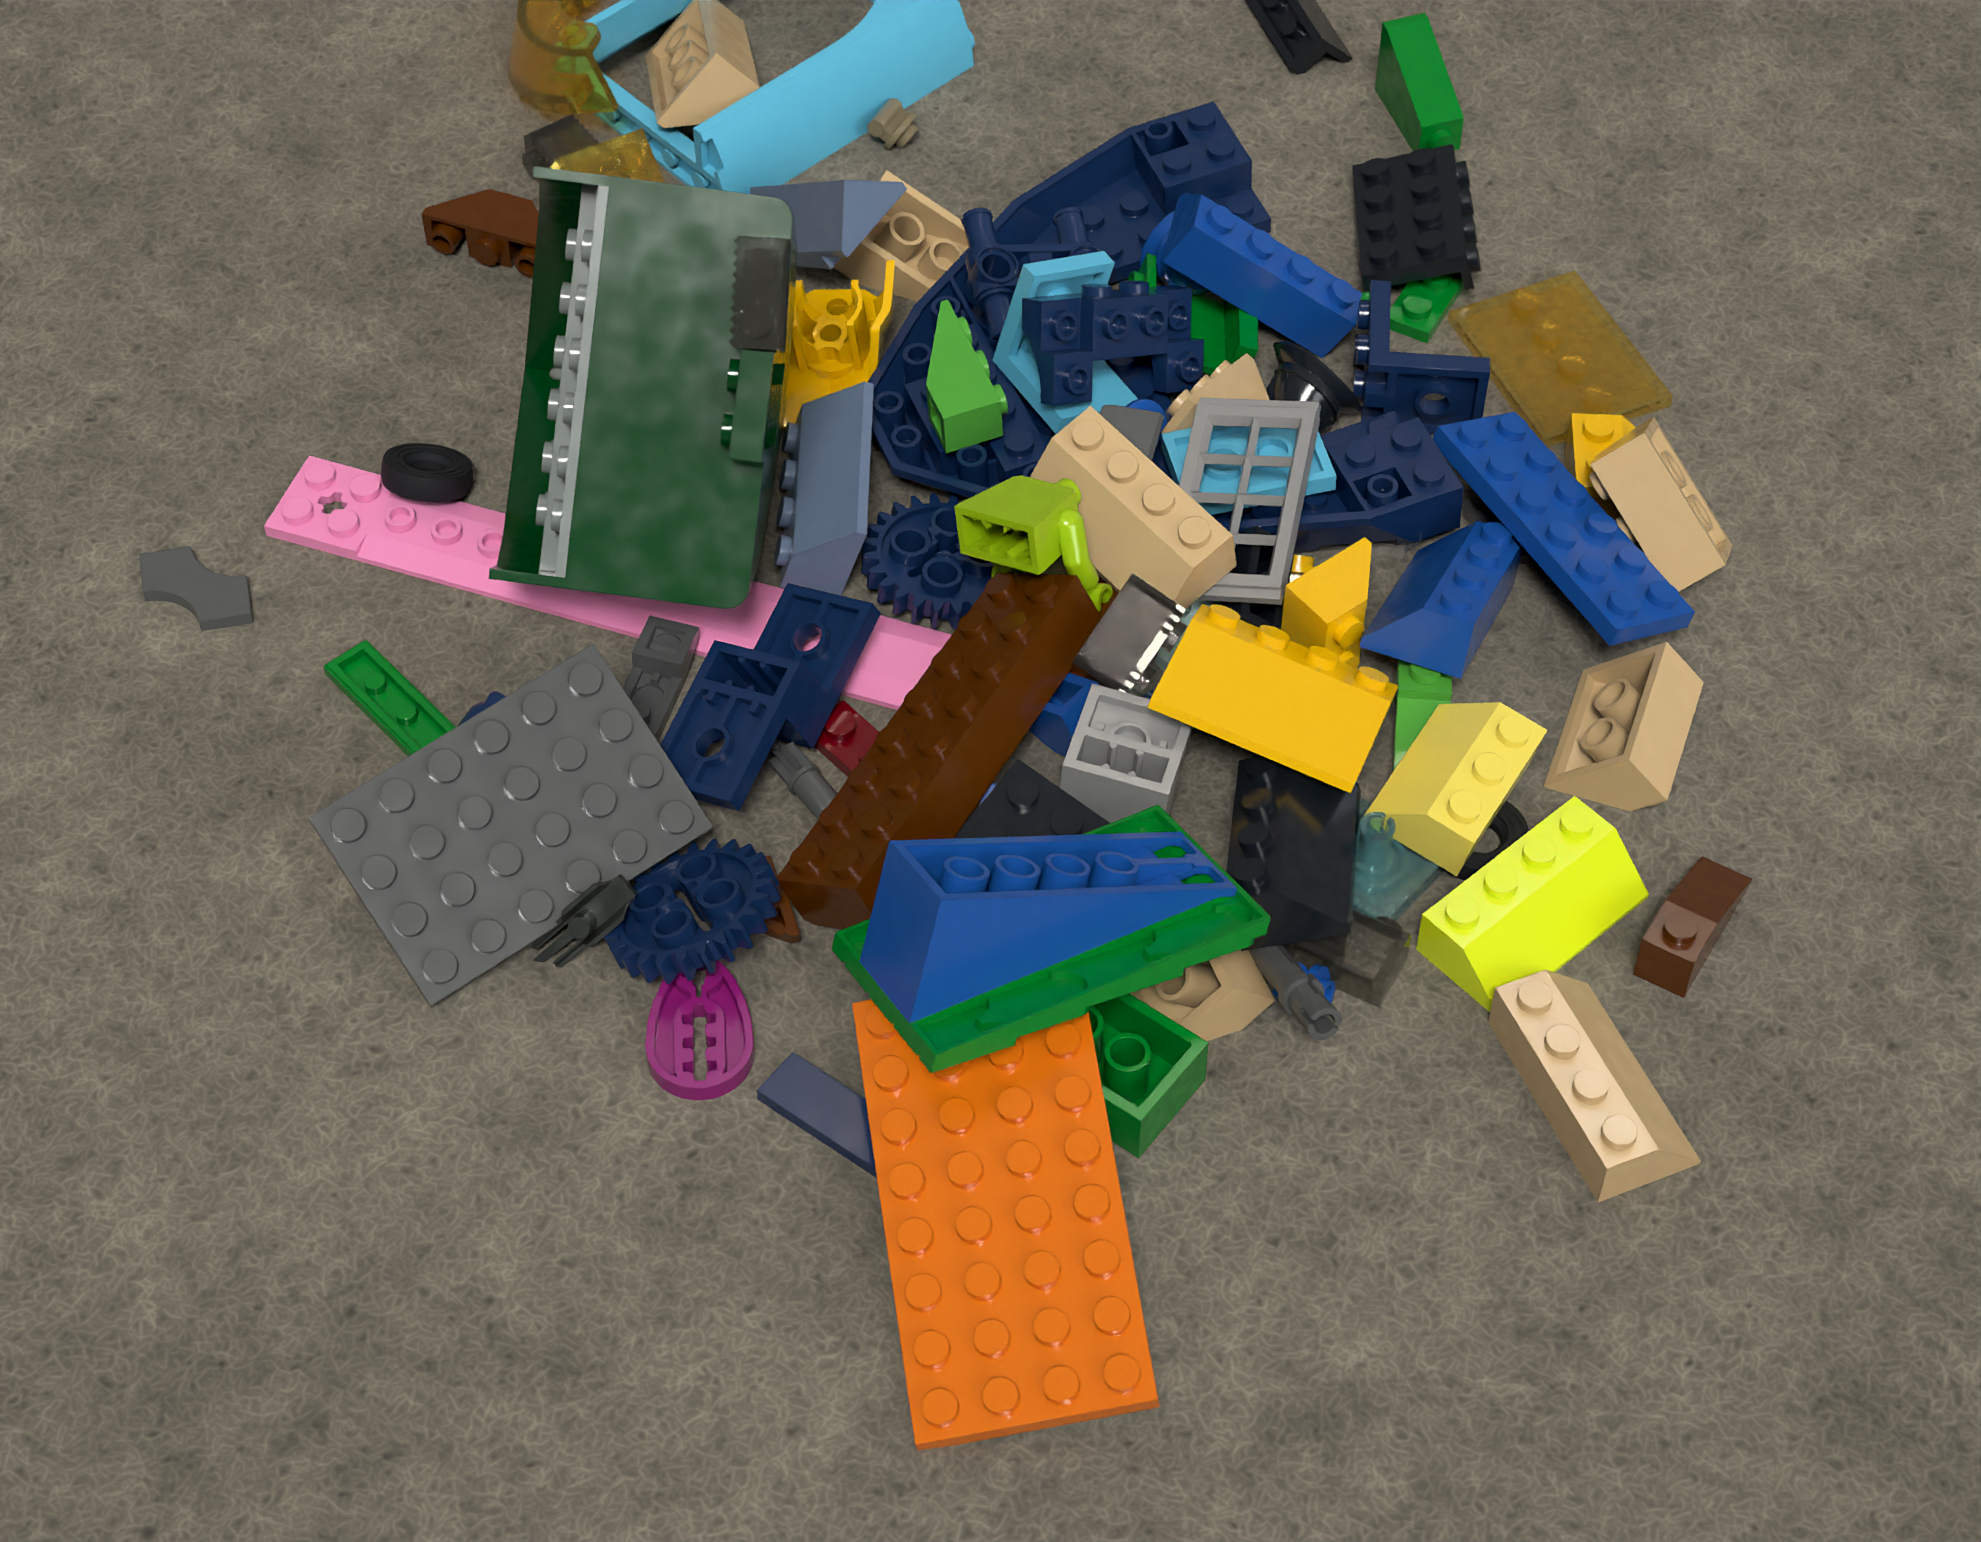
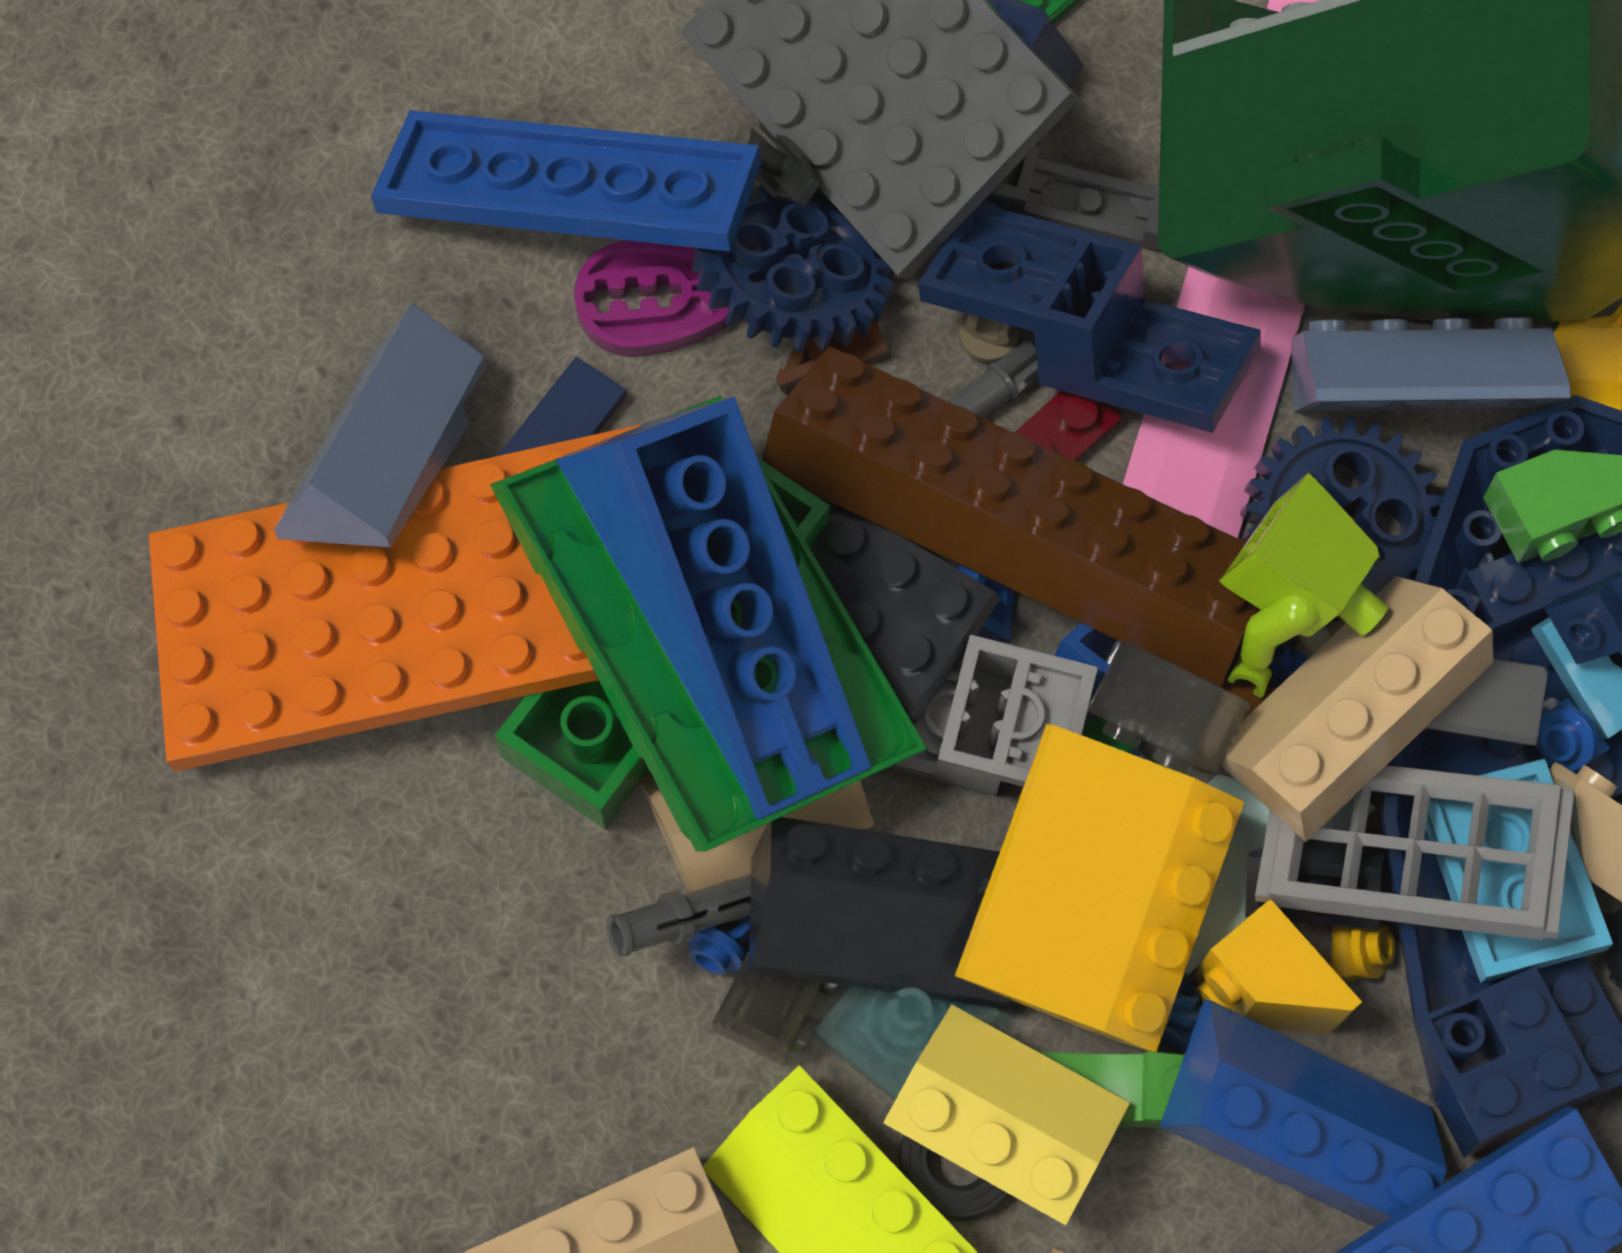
camera: 85 degrees right, 20 degrees up
(590, 1076) = (568, 180): none -> blue plate
(761, 293) = (1456, 145): clear smoke brick -> none
(765, 791) = (986, 339): none -> dark tan plate
(844, 1219) = (387, 438): none -> sand blue slope

